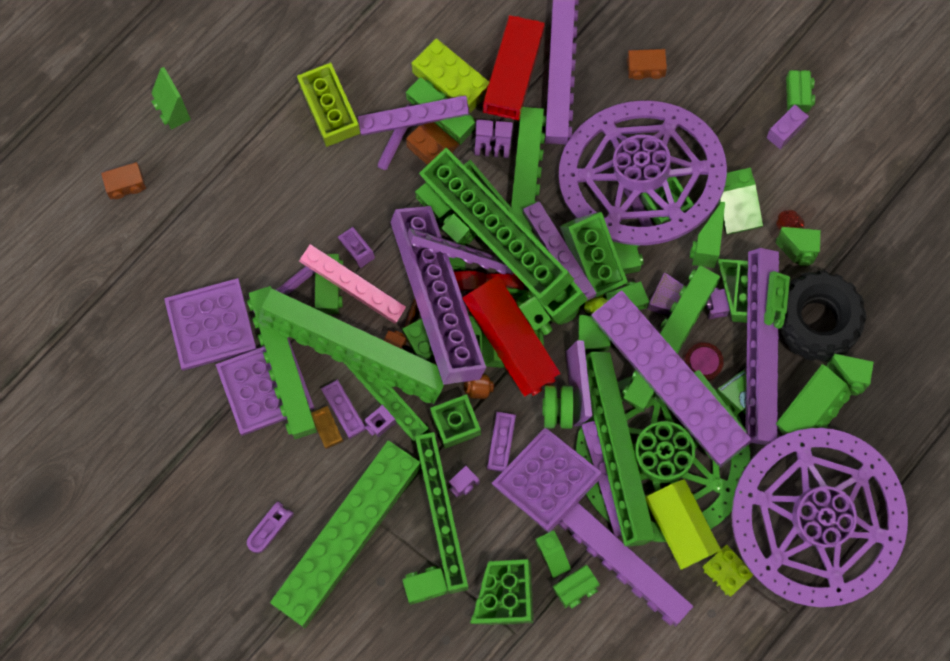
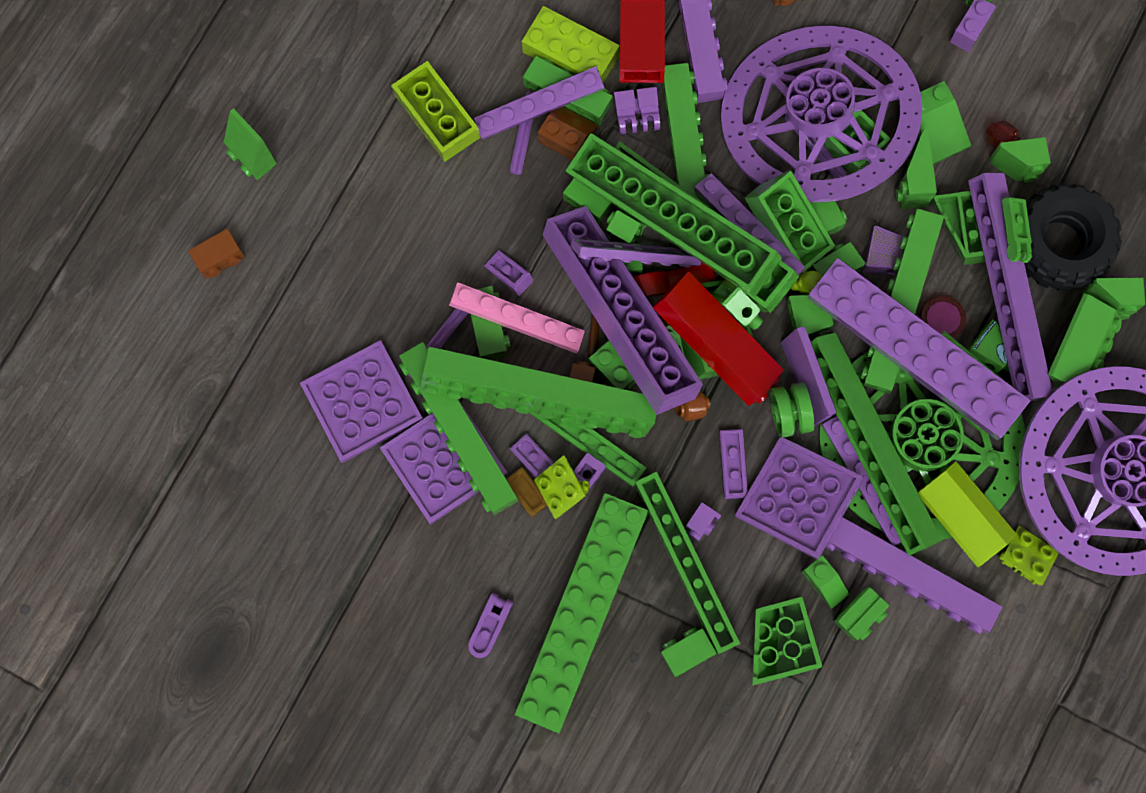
camera: 10 degrees left, 5 degrees up
(354, 428) = (561, 487): none -> lime hinge
(455, 421) = (676, 452): bright green brick -> none
(718, 304) = (945, 249): medium lavender brick -> none

